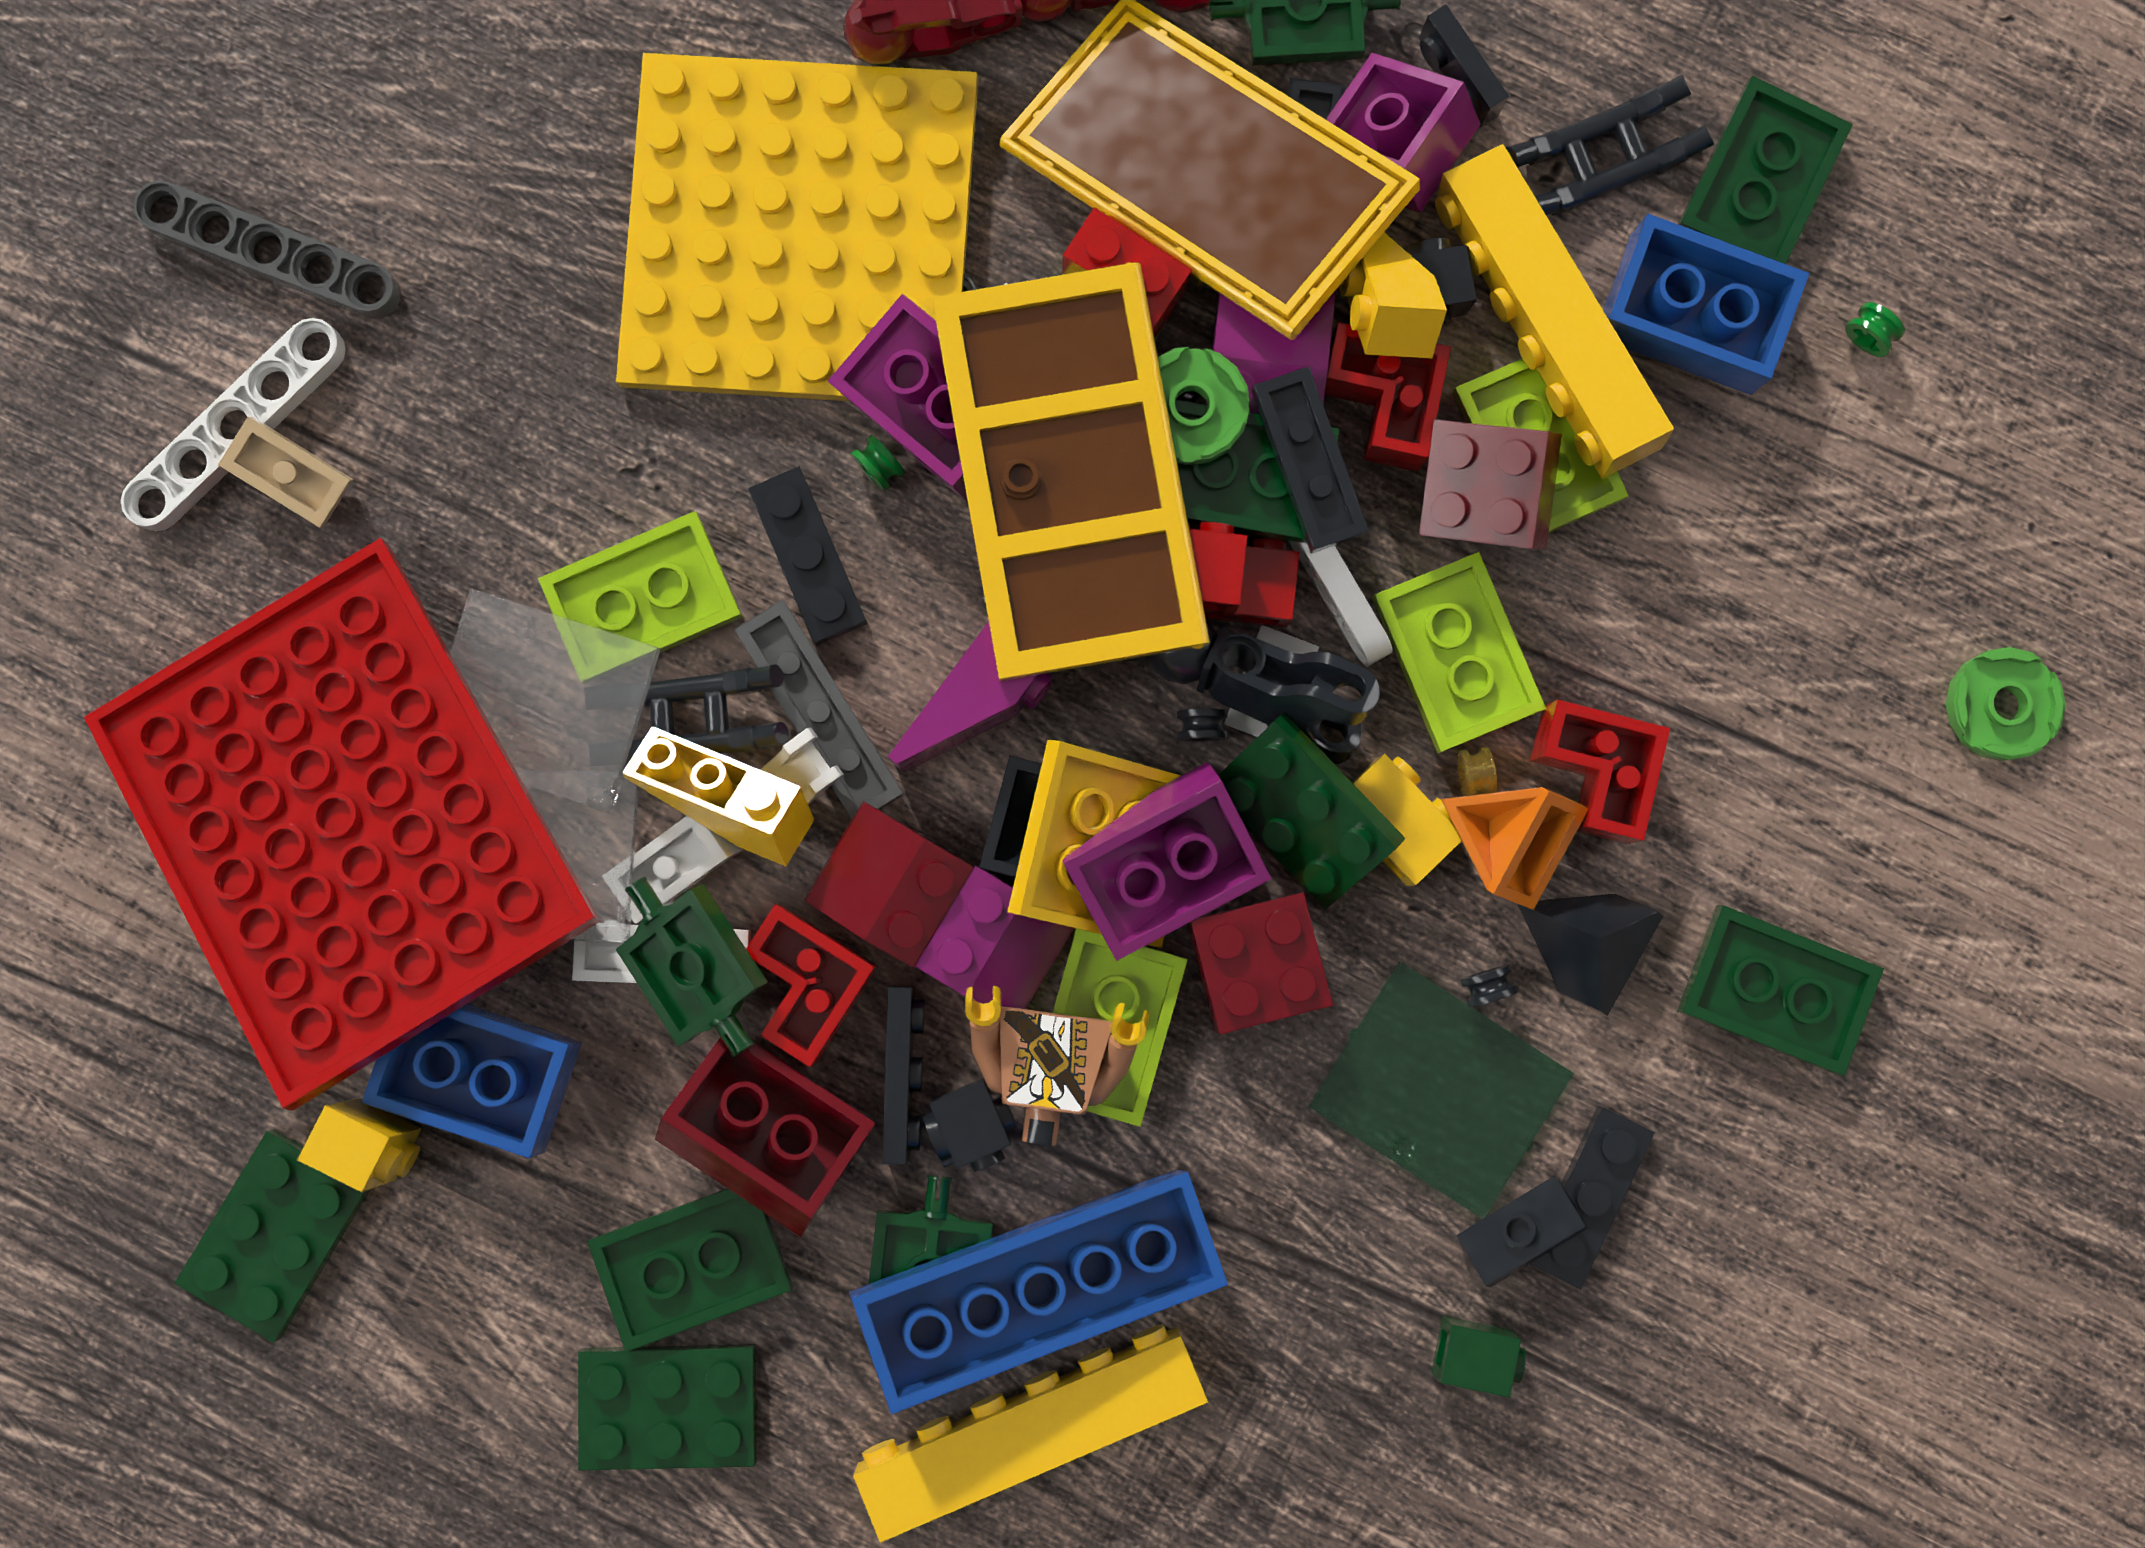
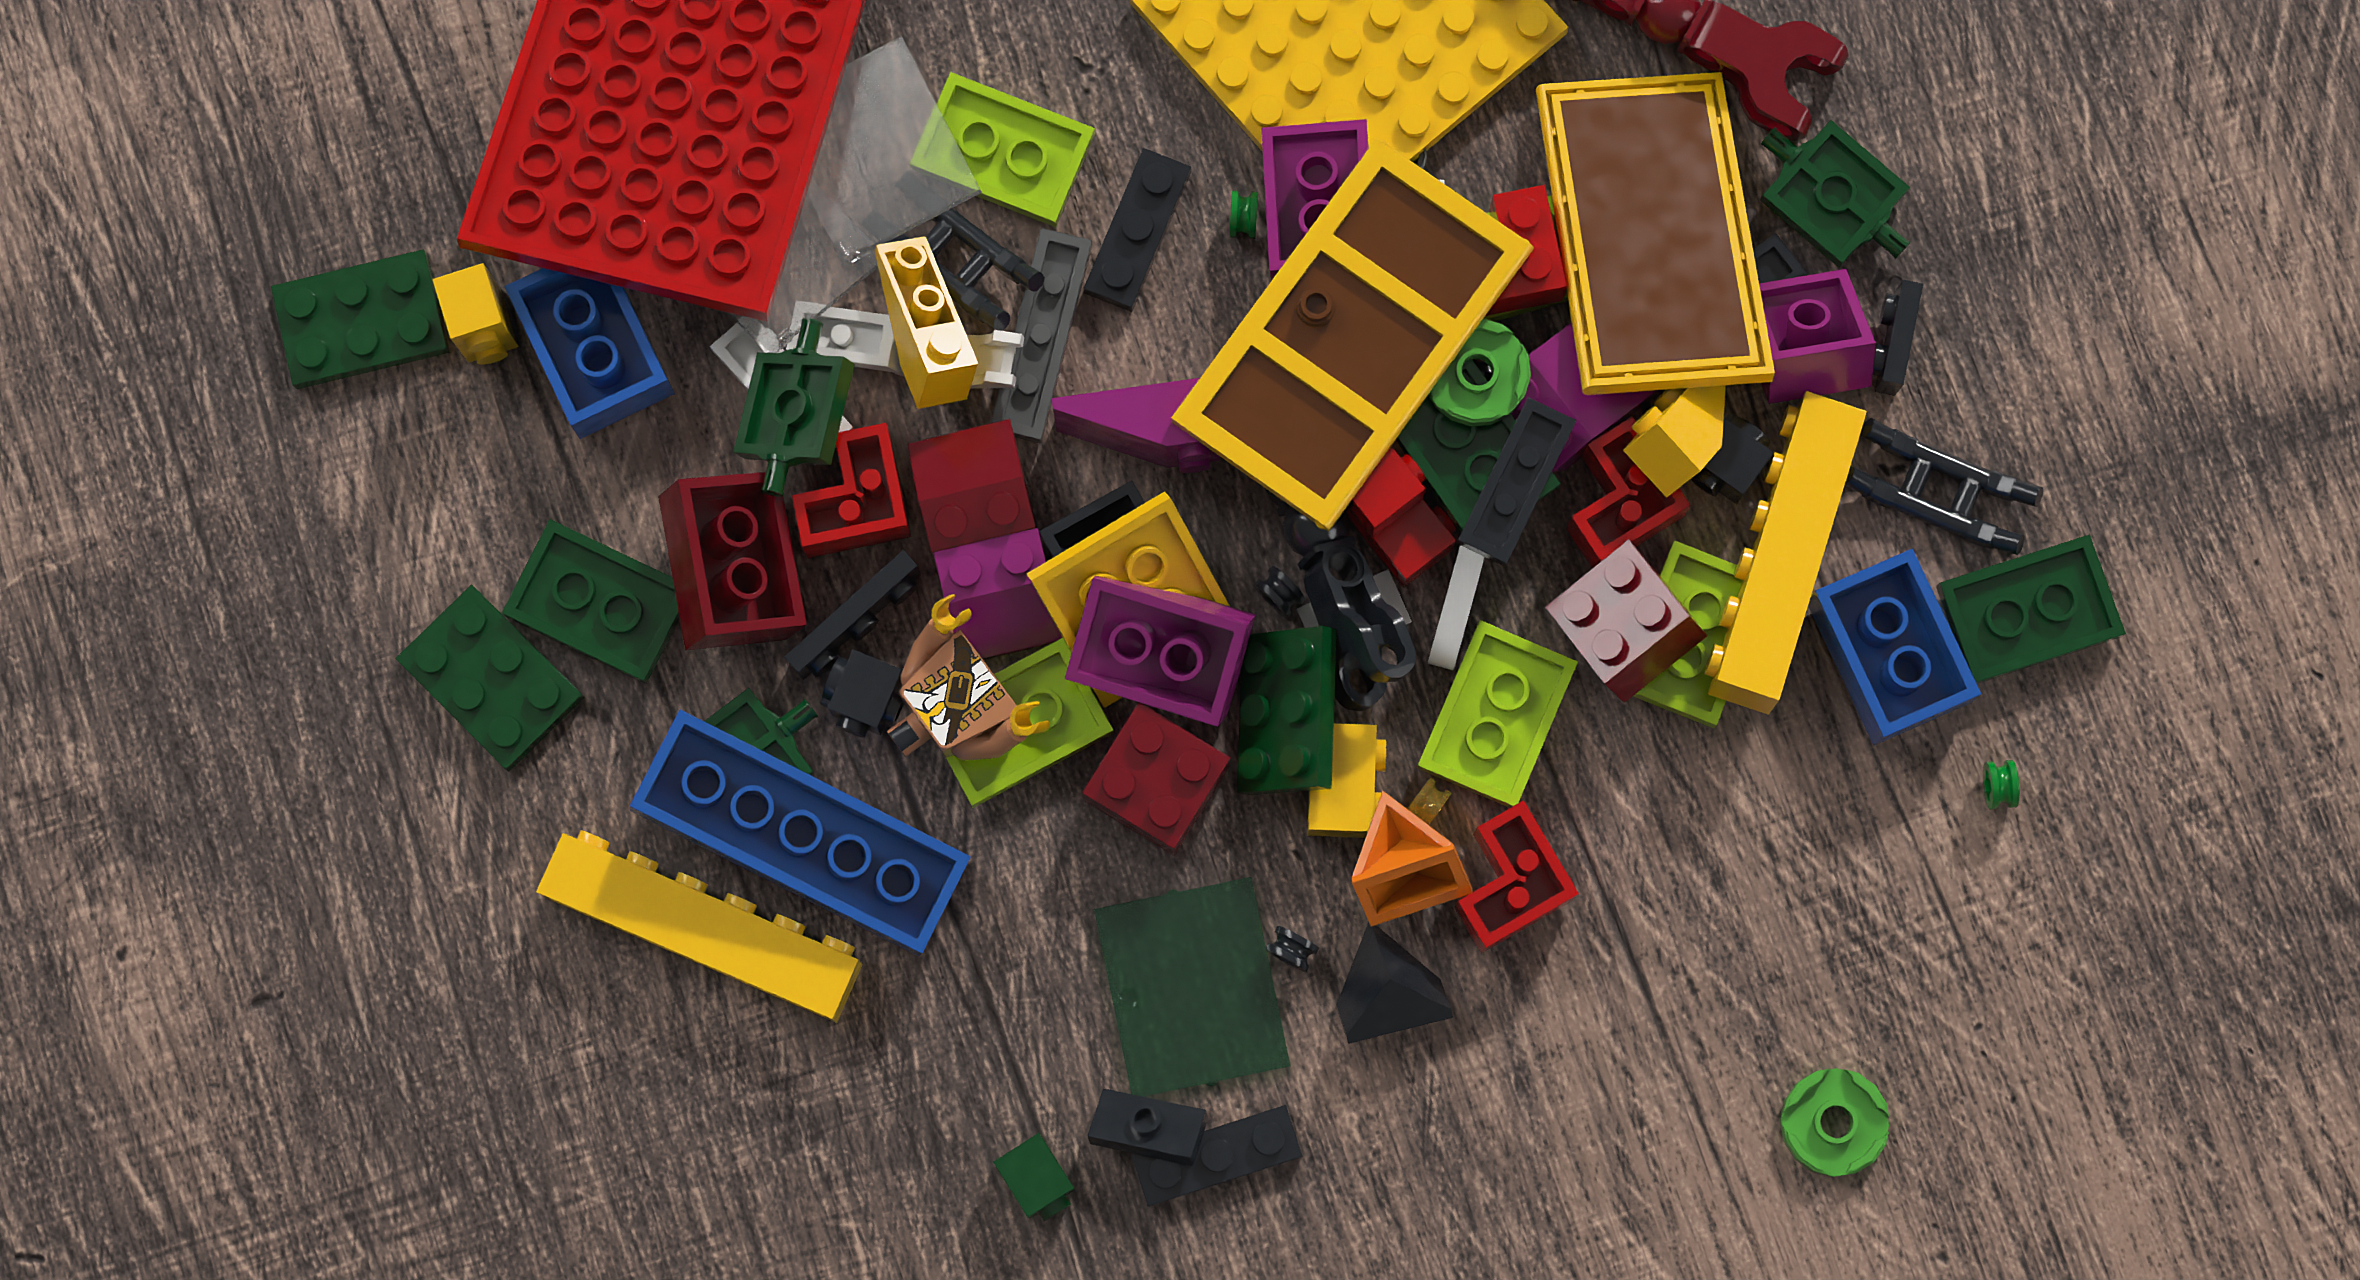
camera: 55 degrees right, 5 degrees down
(1780, 990) = (1482, 1149): dark green plate -> none

